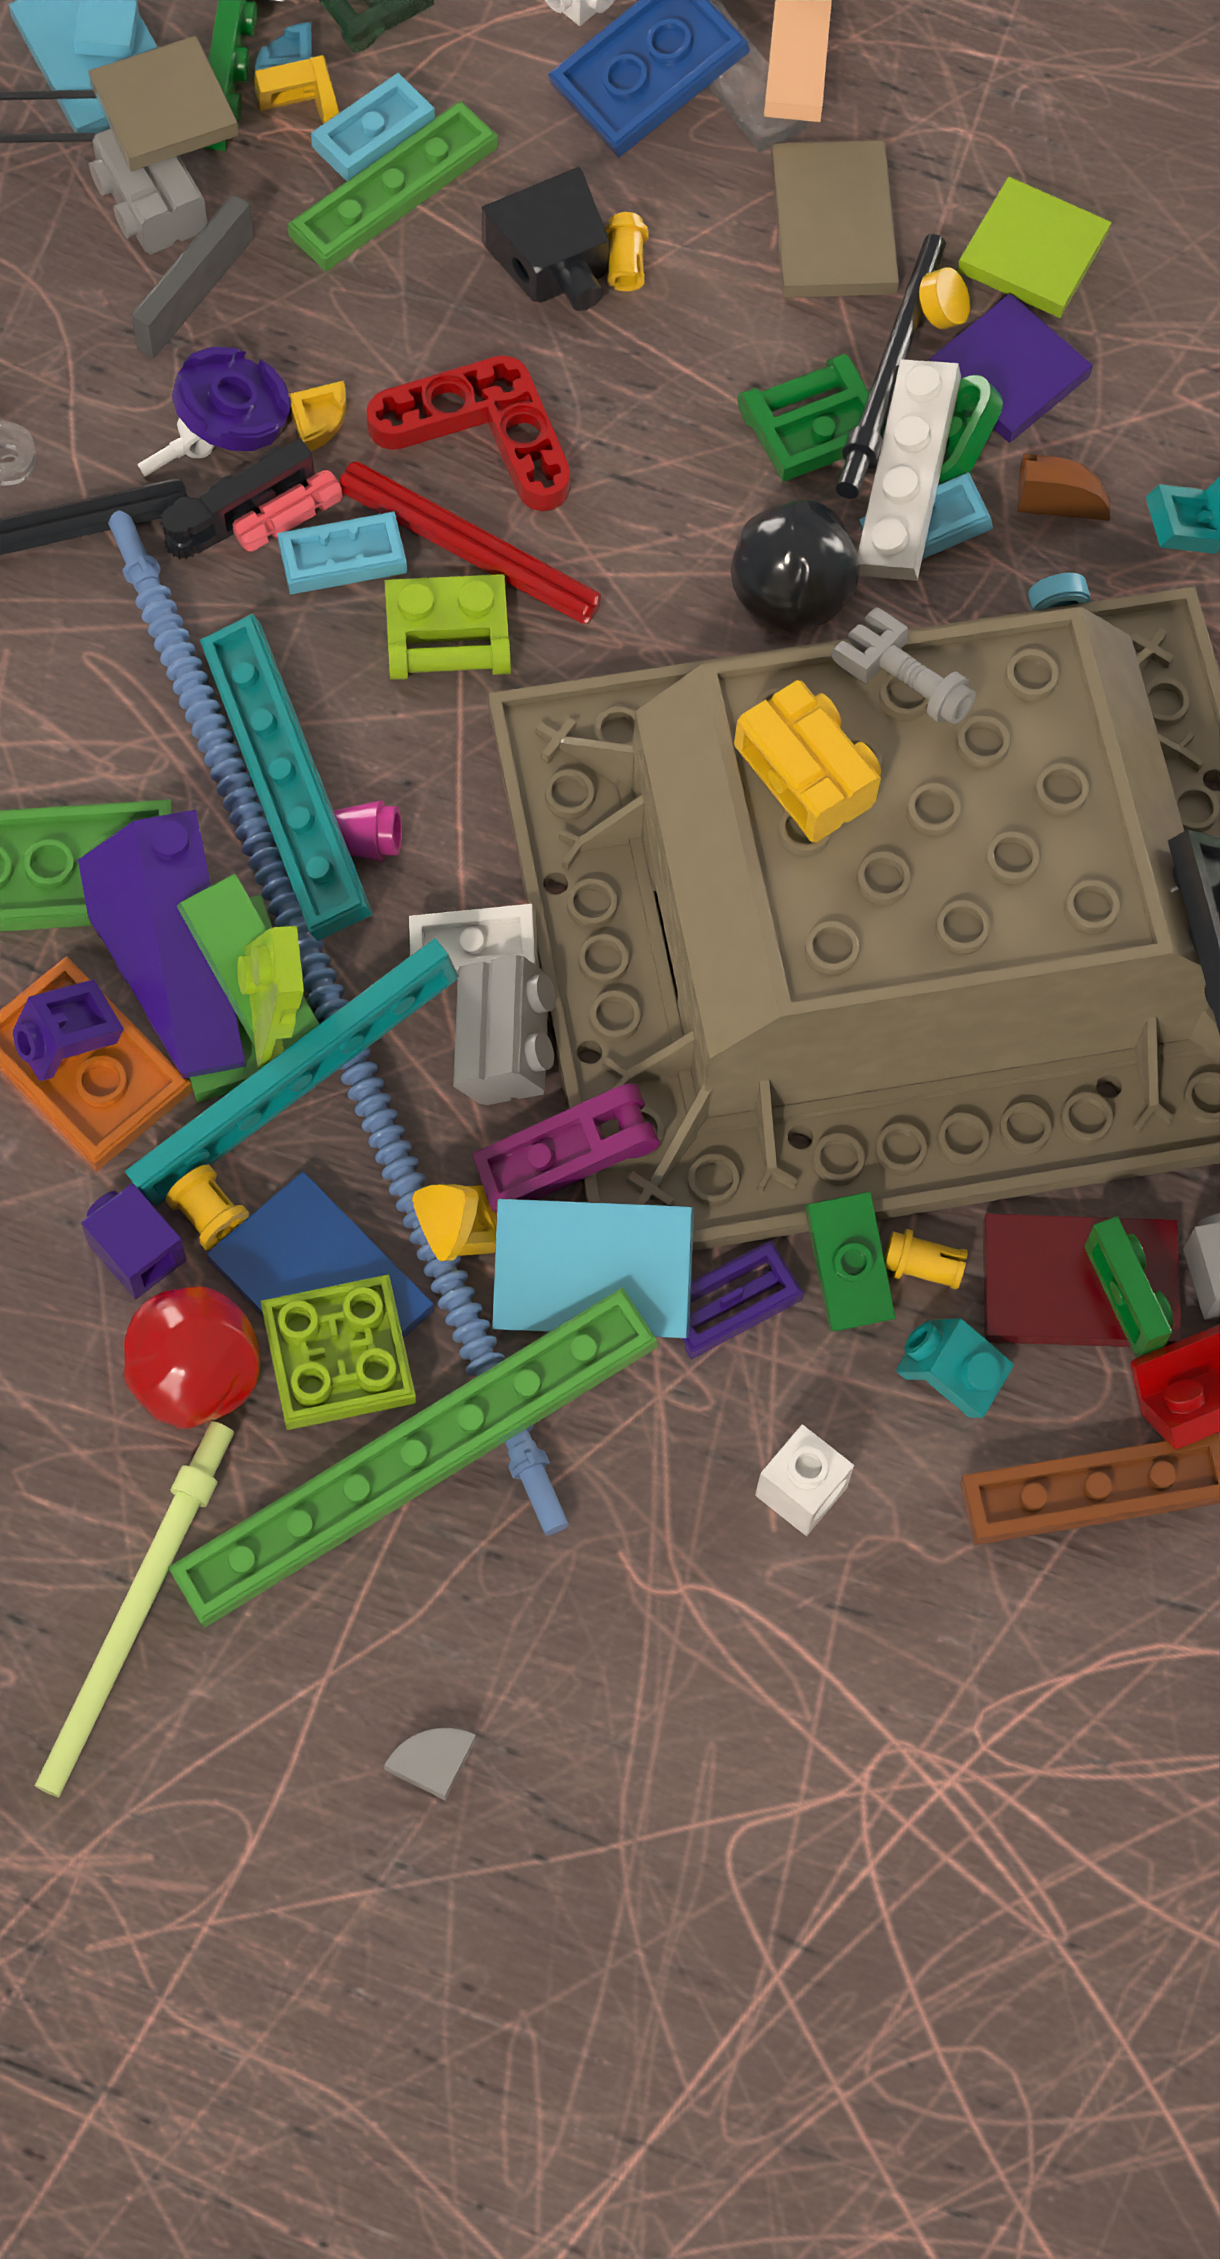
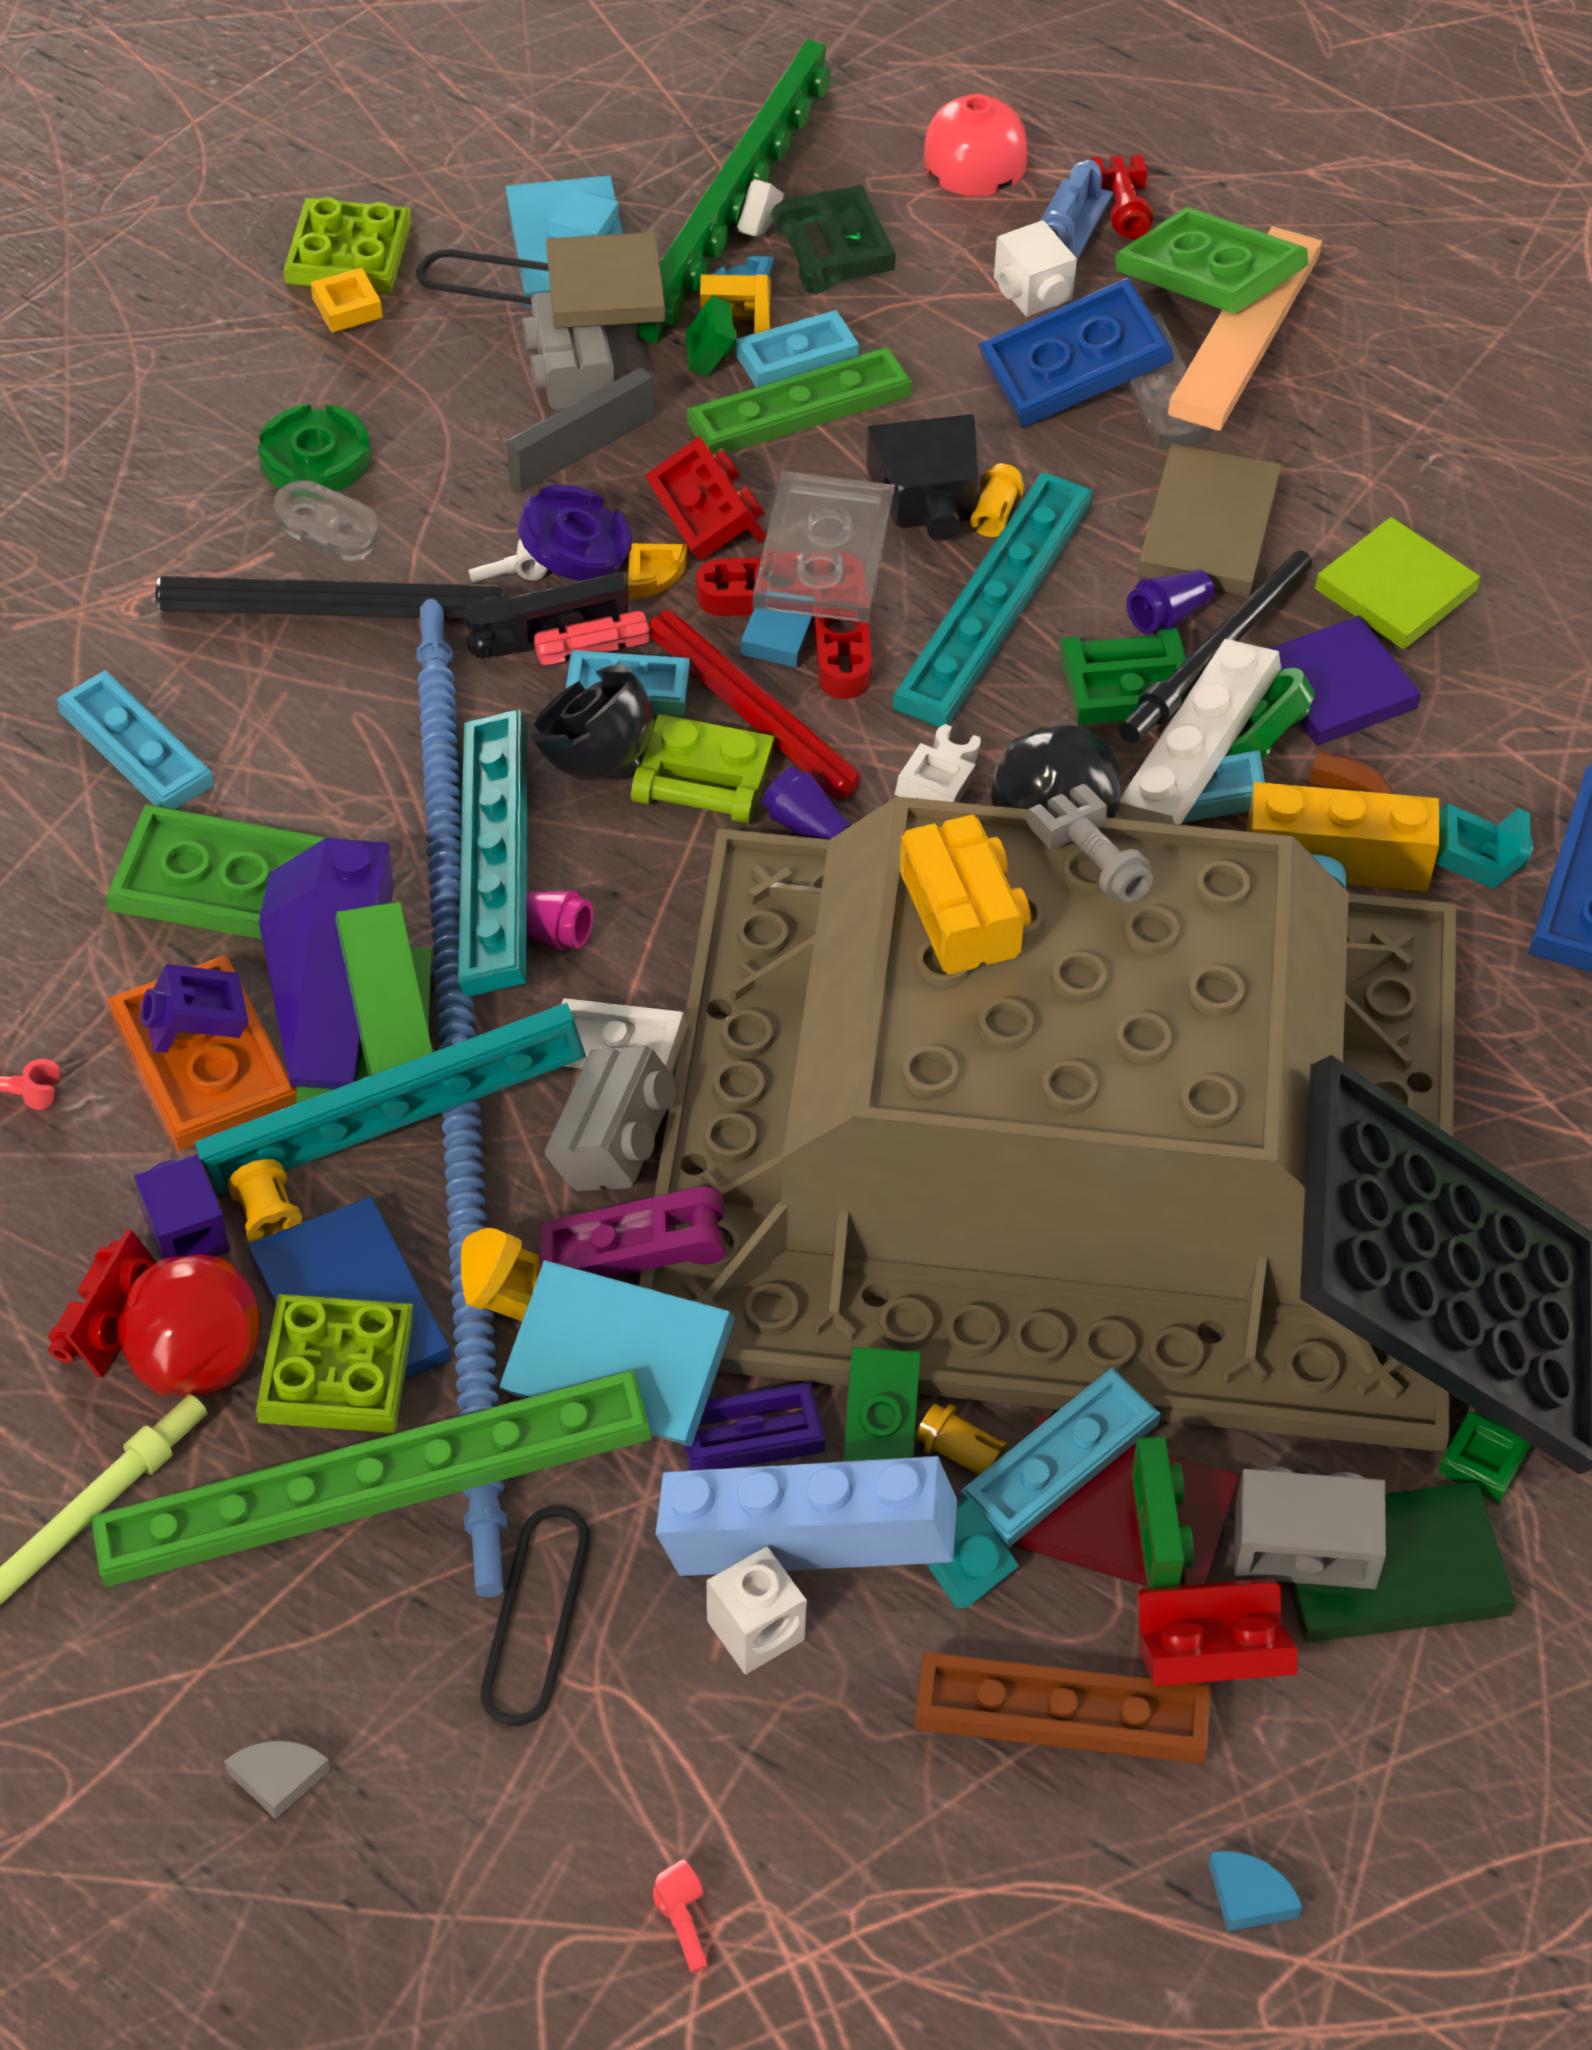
camera: 20 degrees right, 15 degrees down
(98, 1324) = (91, 1326): none -> red hinge
(275, 986) = (390, 996): lime wing -> none
(282, 134) = (710, 336): none -> green plate
(335, 613) = (597, 728): none -> black cylinder
(342, 326) = (703, 499): none -> red bracket
(464, 457) = (776, 636): none -> dark azure tile
(483, 352) = (824, 546): none -> clear tile
(562, 647) = (803, 806): none -> dark purple cone
(630, 1534) = (486, 1687): none -> black piece
(657, 363) = (992, 600): none -> teal tile
(674, 572) = (939, 771): none -> white plate
(820, 1764) = (672, 1892): none -> coral hand
(826, 324) = (1168, 600): none -> dark purple cone
(826, 1383) = (809, 1515): none -> light blue brick
(944, 298) = (1292, 604): yellow tile -> none
(1022, 1251) = (1061, 1455): none -> medium azure tile
(1089, 535) = (1375, 836): none -> yellow brick

